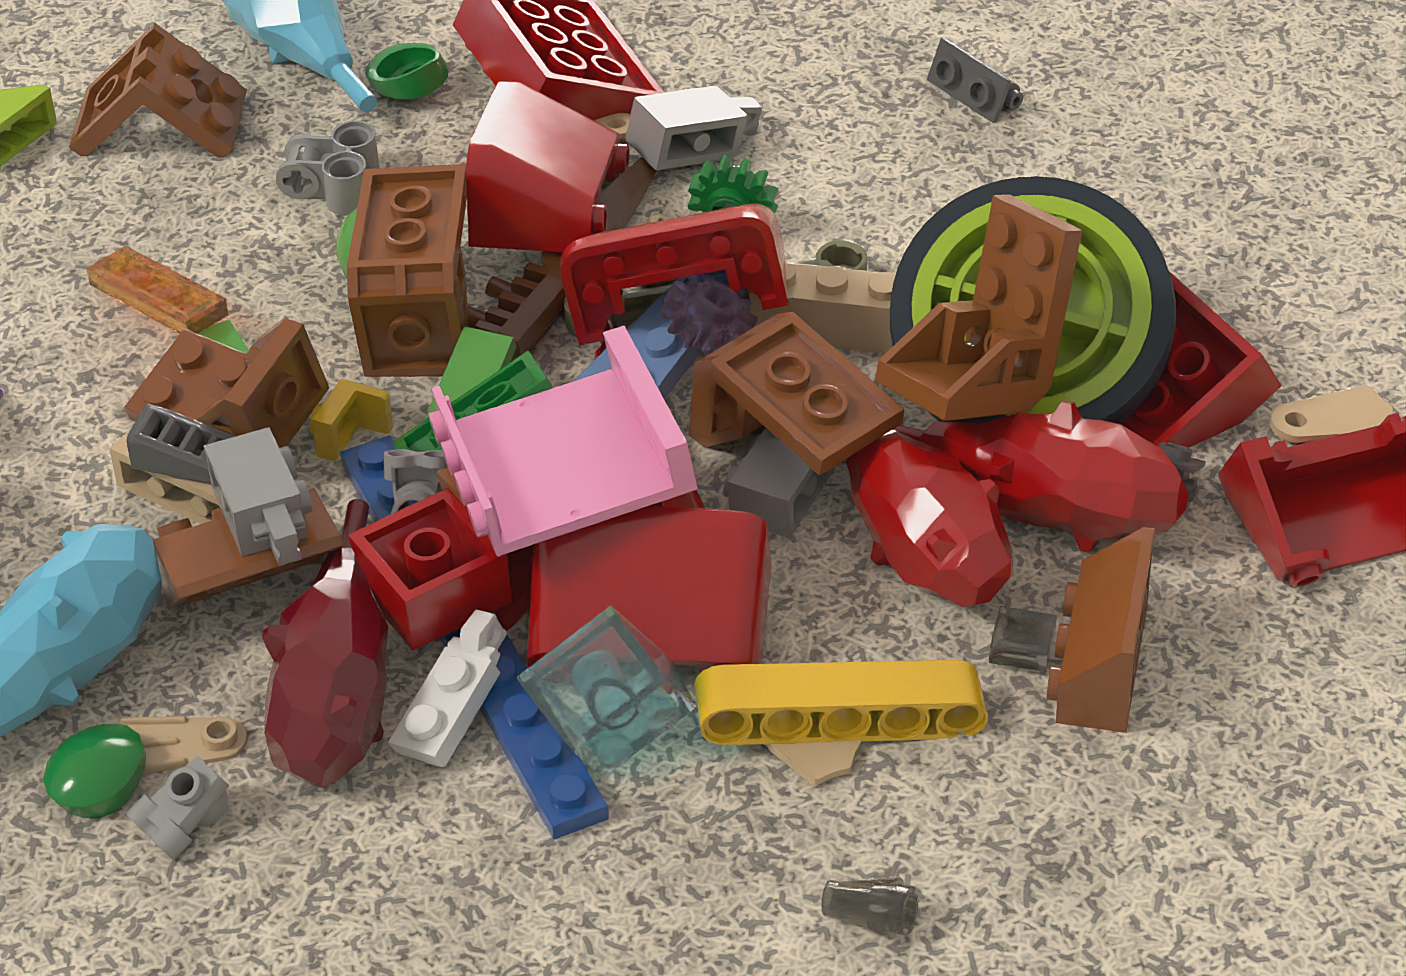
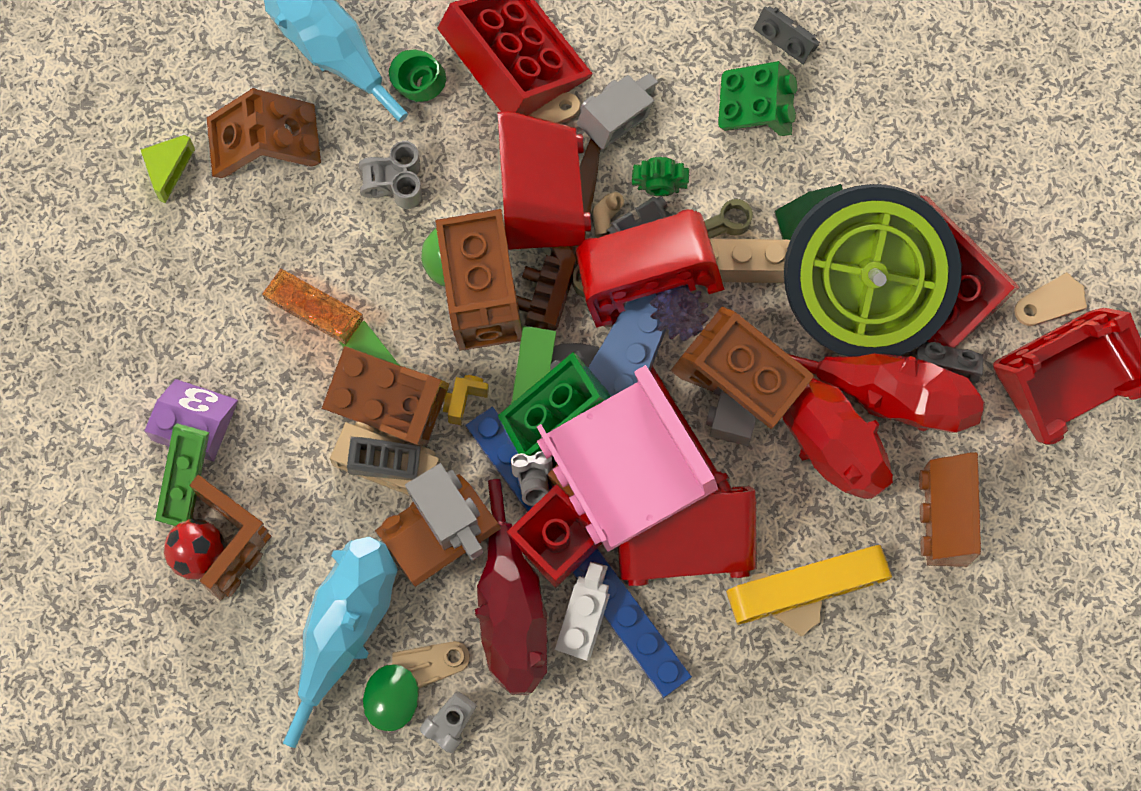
camera: 15 degrees left, 30 degrees up
(608, 691) = (684, 614): clear light blue slope -> none
(875, 905) = (853, 723): clear smoke cone -> none
(922, 129) = (758, 97): none -> green bracket
(1009, 323) = (863, 321): dark orange bracket -> none
(1022, 639) = (900, 512): clear smoke plate -> none

